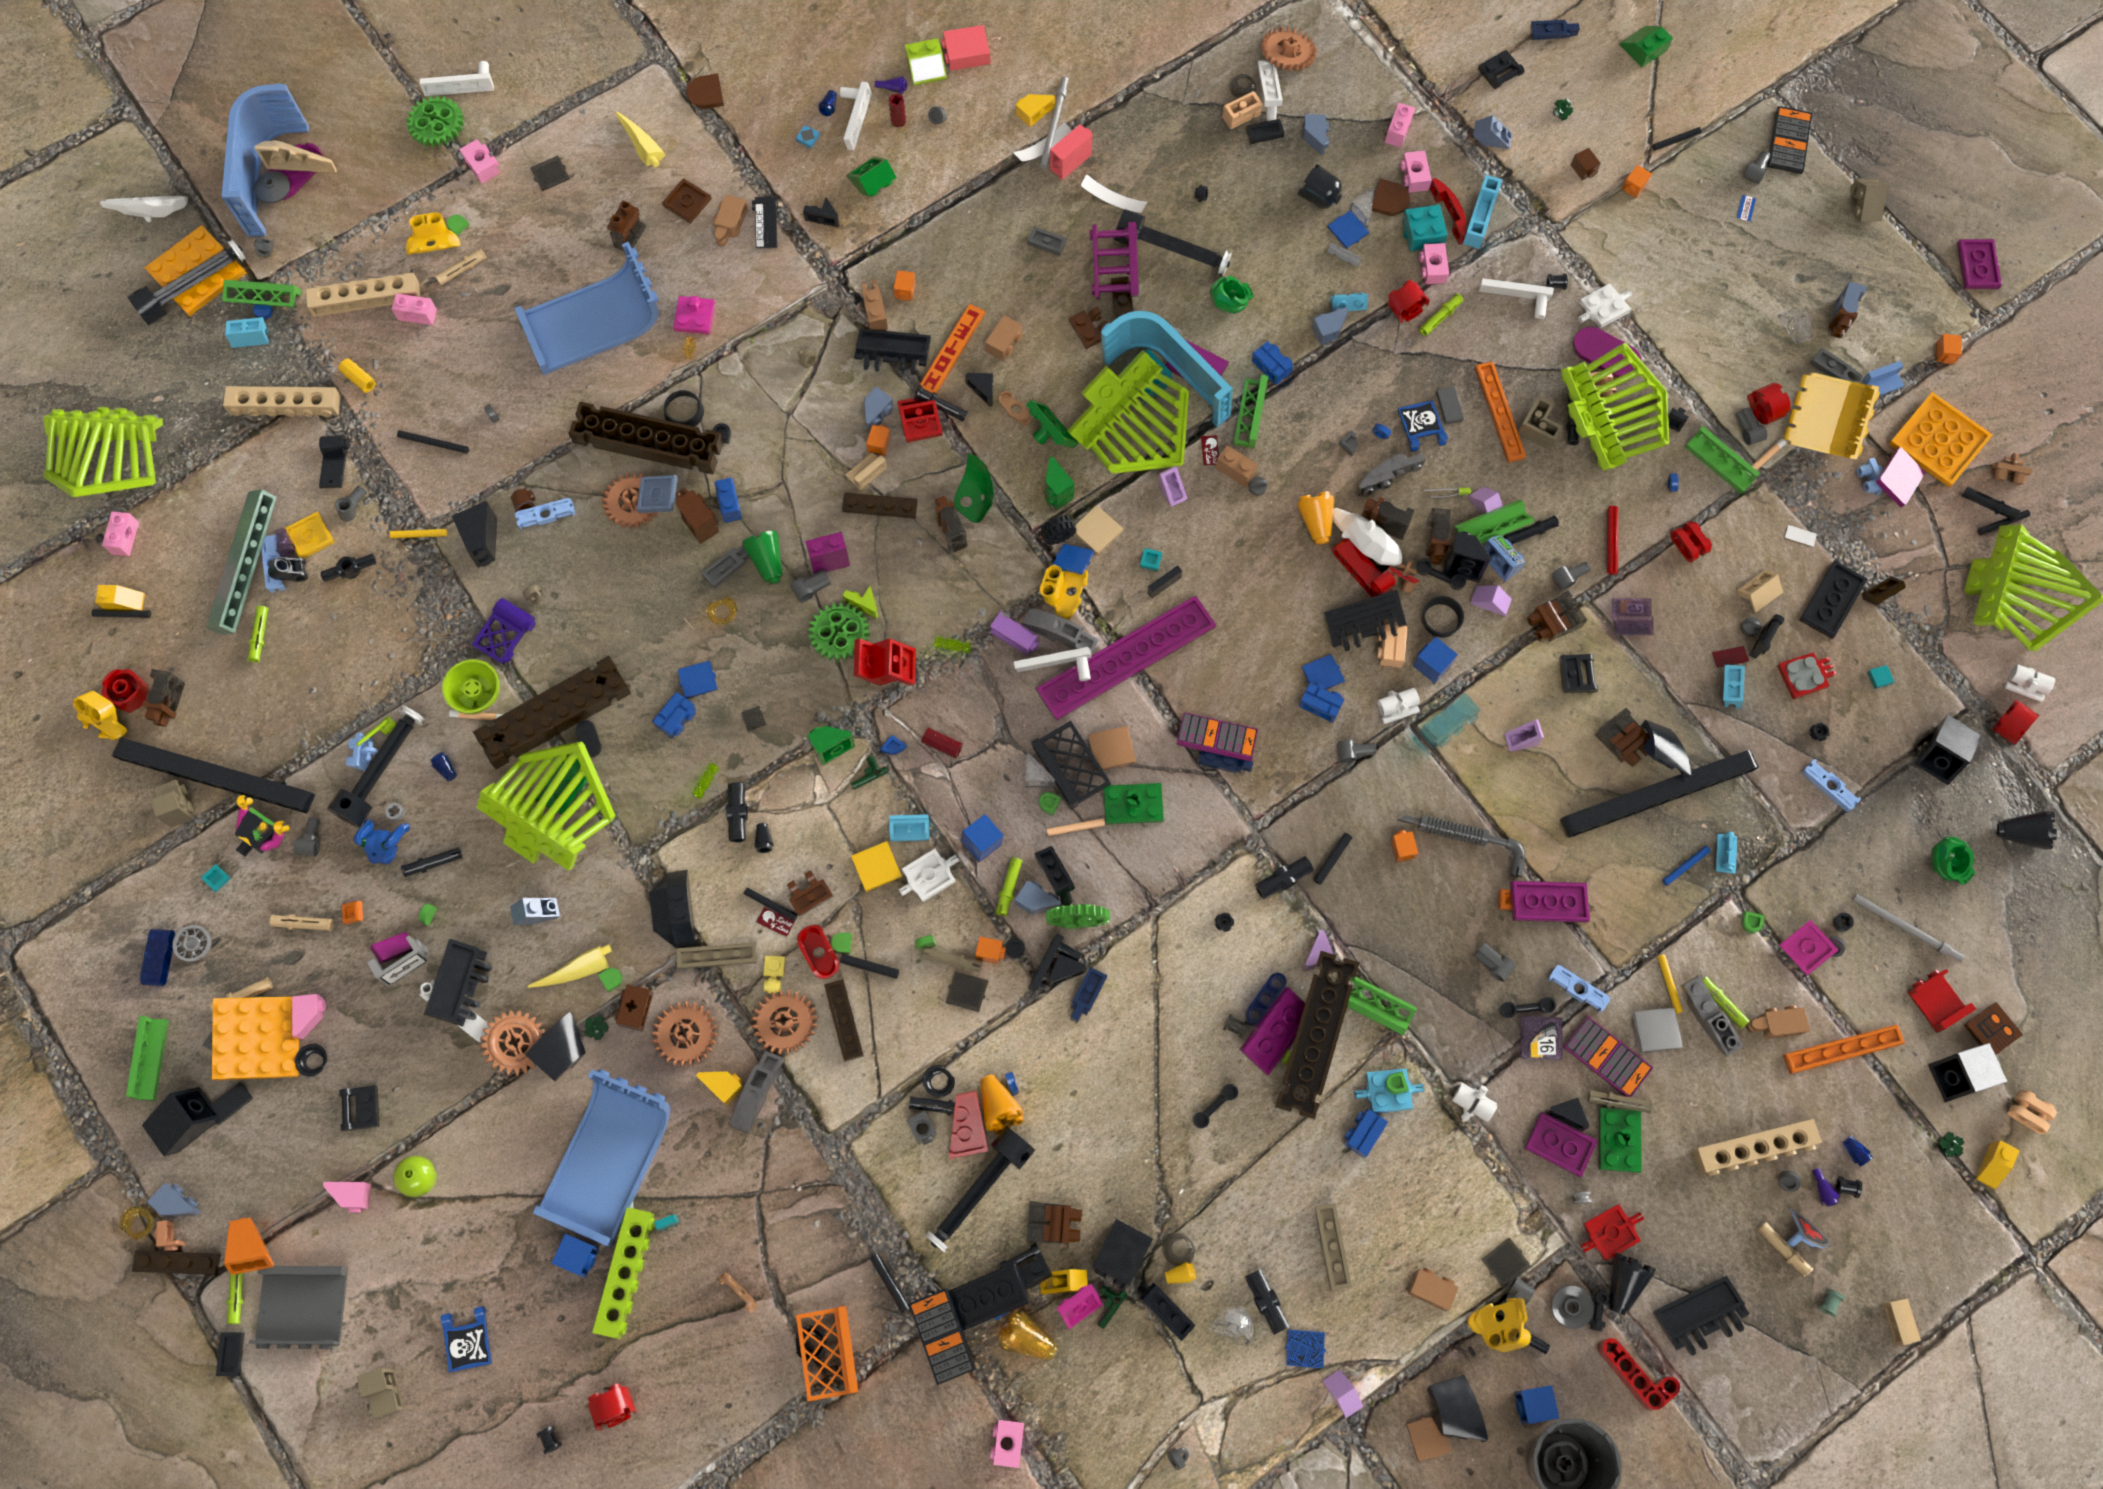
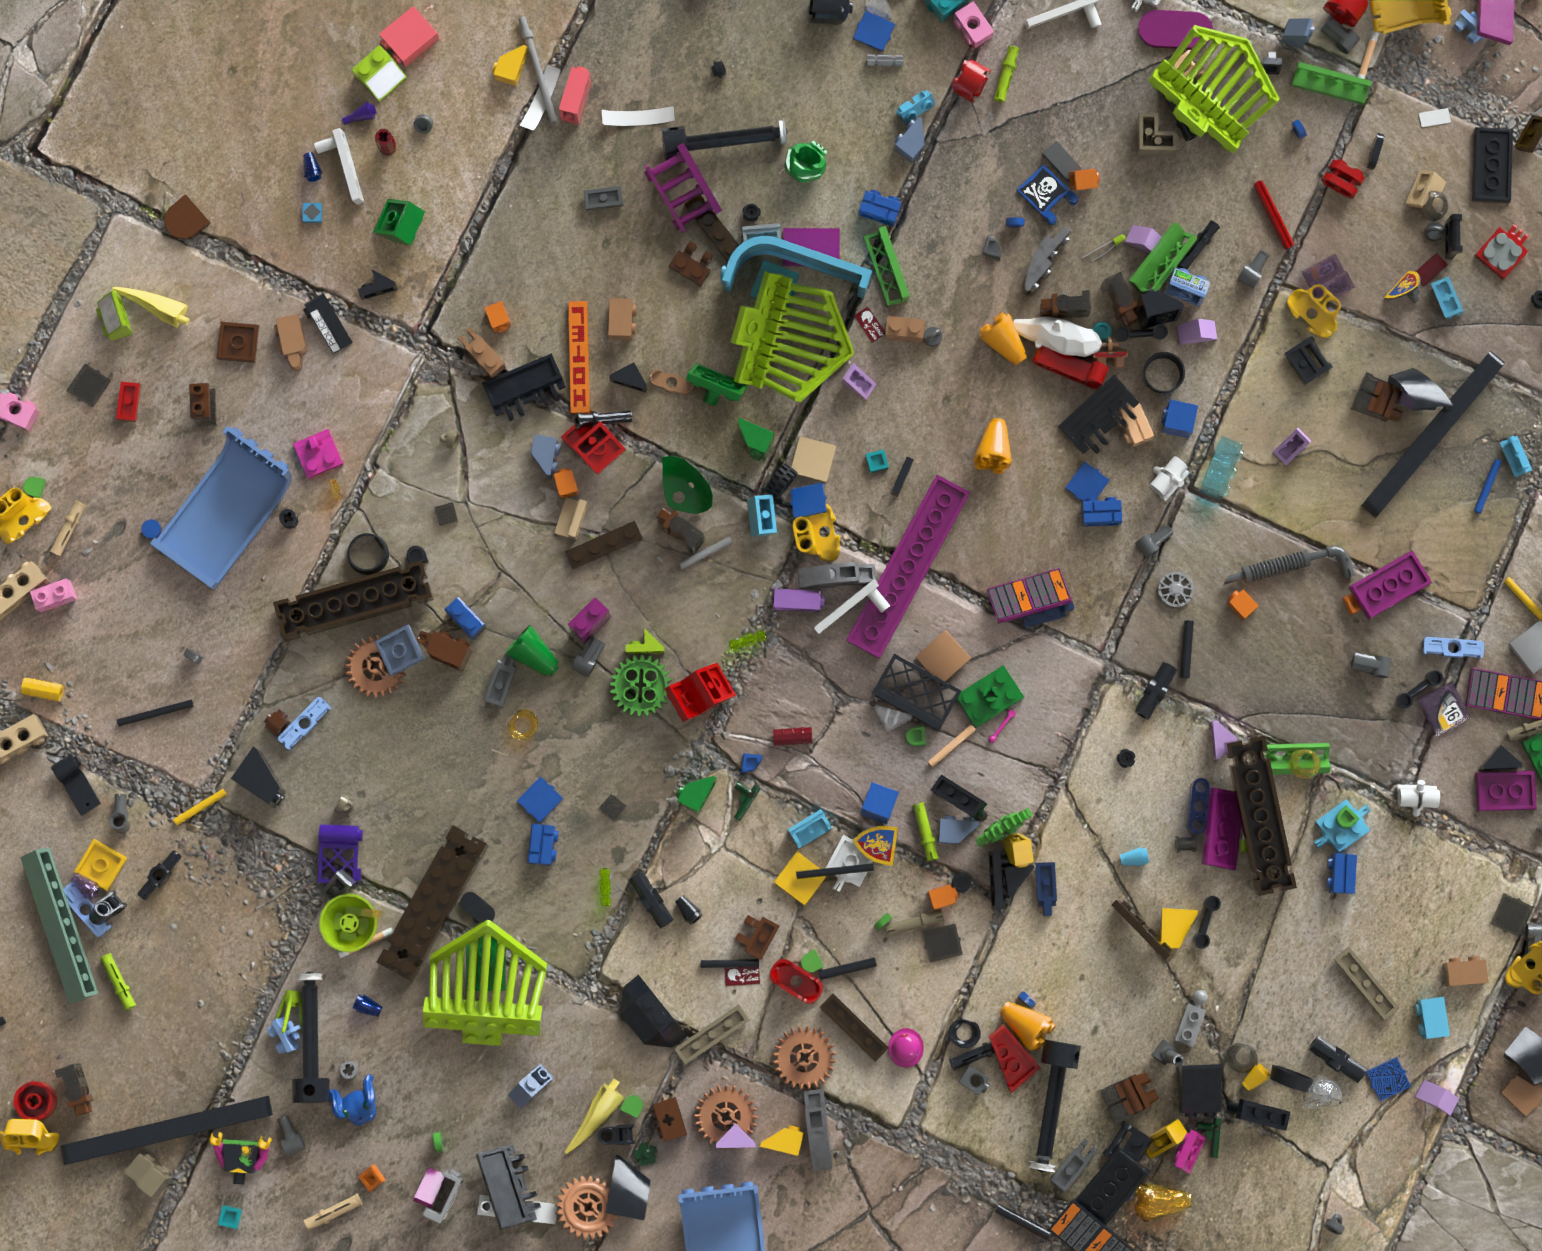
camera: 30 degrees left, 10 degrees up
(423, 865) = (412, 1094): black pin -> none
(486, 651) = (338, 885): none -> dark grey slope
(493, 687) = (370, 913): none -> clear yellow tile
(525, 300) = (151, 529): none -> blue tile
(571, 199) = (128, 401): none -> red plate
(583, 996) = (618, 1135): none -> black piece
(602, 130) = (114, 316): none -> lime slope
(636, 350) = (288, 524): none -> black bush
(679, 1054) = (735, 1138): none -> lavender slope
(766, 414) = (446, 514): none -> clear smoke tile
(774, 968) = (766, 1017): light yellow plate -> none
(879, 1065) = (906, 1047): none -> dark pink hat
(908, 874) = (834, 871): none -> black bar
(960, 871) = (878, 844): none -> shield
(961, 556) = (706, 552): none -> light grey bar
(964, 1258) = (1072, 1167): none -> dark grey hinge
(1025, 548) = (761, 515): none -> medium azure brick
(1080, 945) = (1018, 850): none -> yellow slope
(1110, 1204) = (1166, 1053): none -> dark grey pin
(1144, 829) = (1011, 713): none -> dark pink hinge
(1152, 1187) = (1192, 1019): none -> light grey plate
(1154, 1085) = (1149, 935): none -> dark brown plate
(1162, 308) = (746, 212): none -> black plate
(1182, 1012) = (1135, 857): none -> medium azure cone
(1184, 1094) = (1175, 925): none -> yellow slope
(1212, 1292) = (1290, 1078): none -> black tyre
(1257, 600) = (994, 448): none -> light orange cone
(1351, 802) = (1175, 589): none -> light grey wheel
(1378, 1315) = (1432, 1018): none -> medium azure brick
(1381, 1022) = (1300, 772): none -> clear yellow piece
(1408, 554) = (1103, 330): none -> teal tile
(1460, 426) = (1083, 179): none -> orange brick
(1500, 412) = (1109, 142): orange tile -> none
(1557, 617) = (1260, 324): hips -> none
(1610, 650) = (1324, 324): none -> yellow piece
(1699, 657) = (1408, 286): none -> shield
(1714, 404) = (1298, 31): none -> sand blue slope
(1734, 532) = (1375, 151): none -> black tile
(1755, 605) = (1429, 210): none -> clear smoke piece

